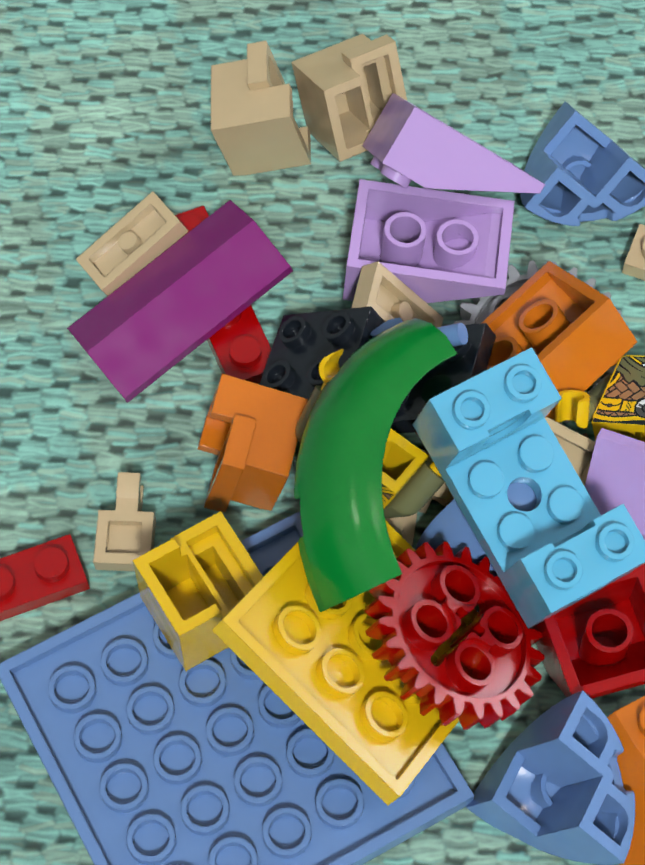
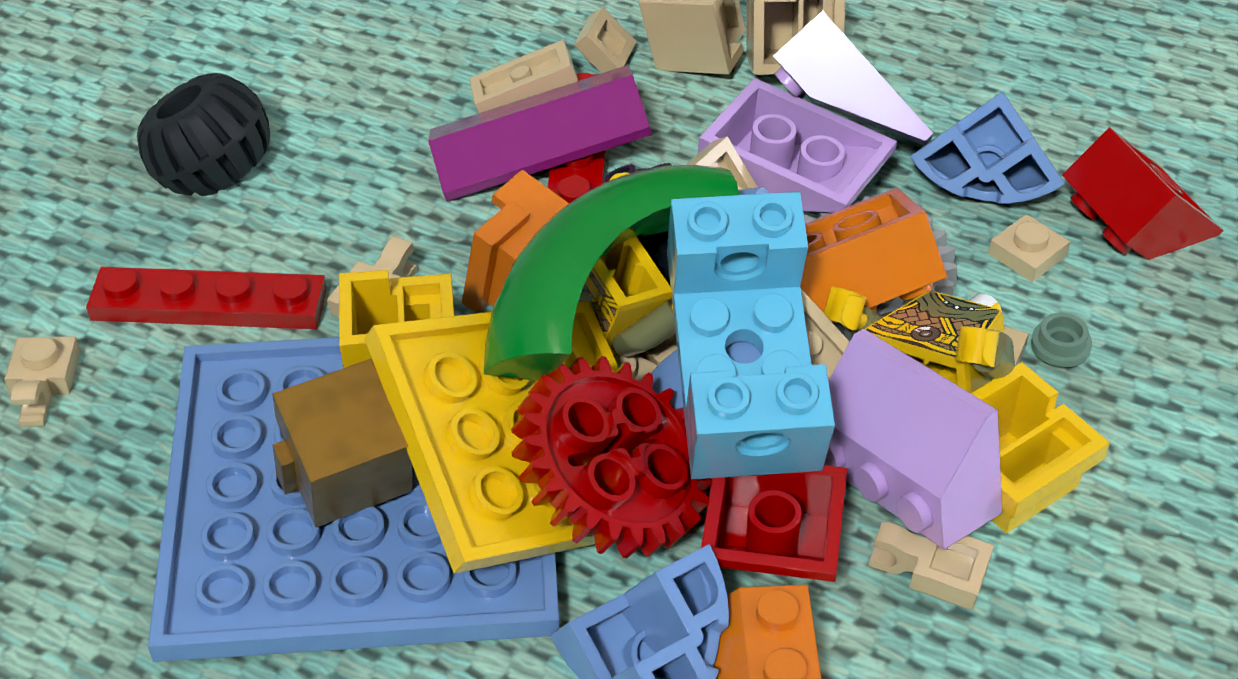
camera: 25 degrees right, 15 degrees down
(181, 171) = (604, 41): none -> tan plate
(223, 723) = (340, 443): none -> pearl gold plate

